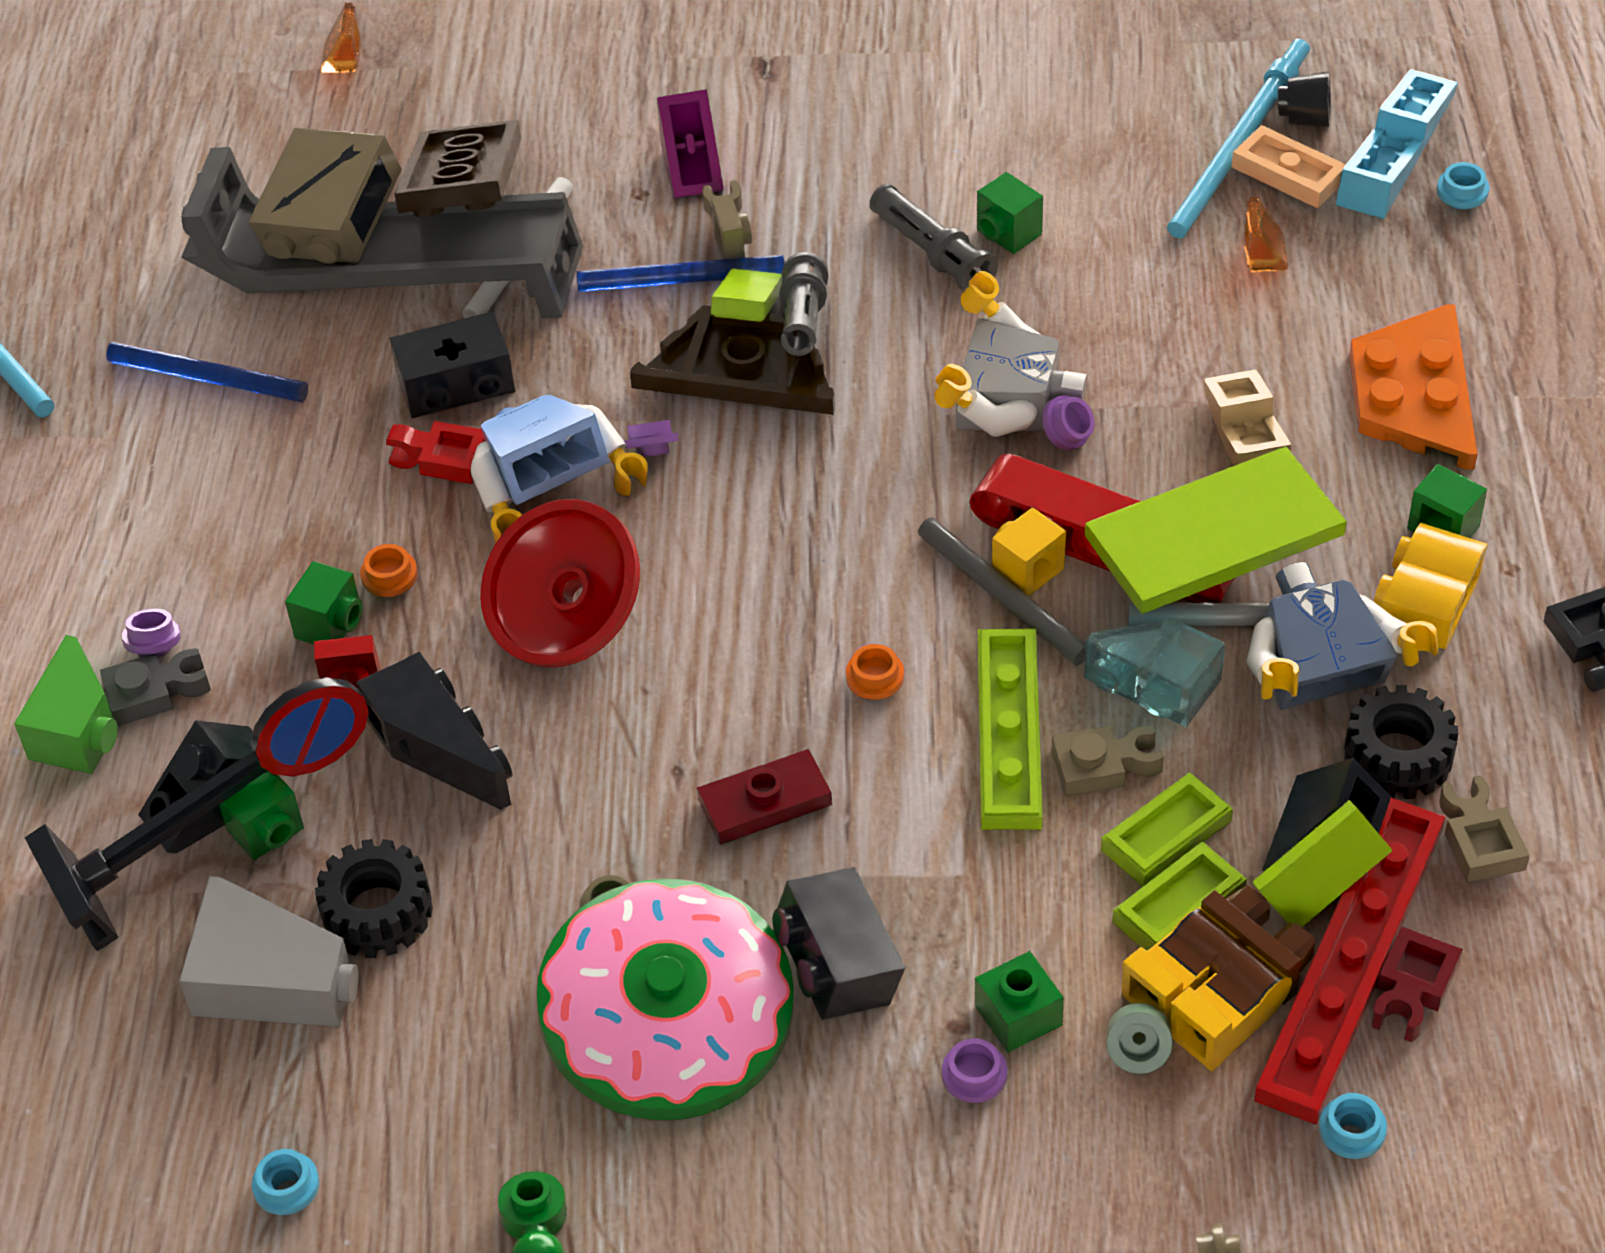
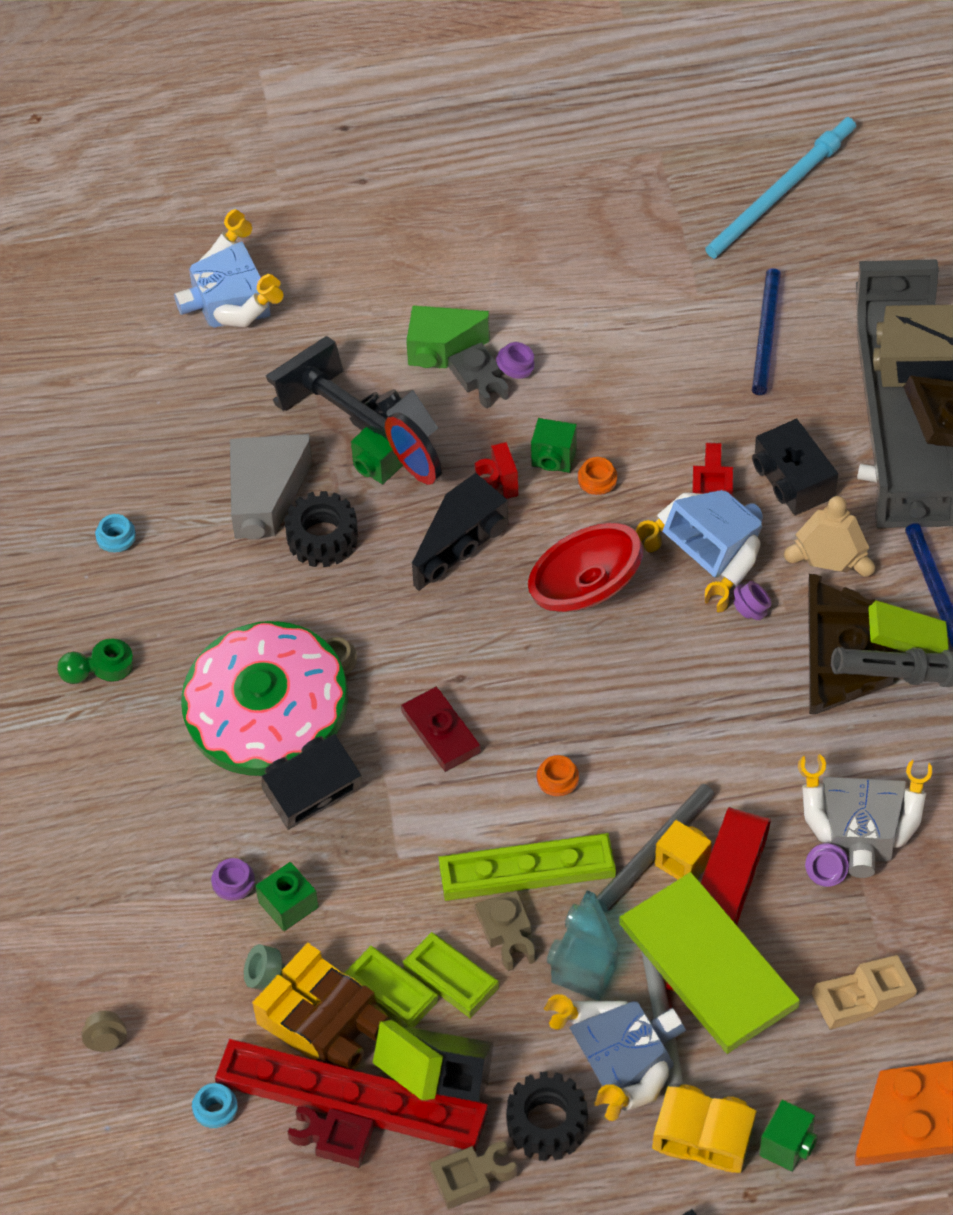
camera: 80 degrees right, 5 degrees up
(585, 341) = (832, 541): none -> tan rock

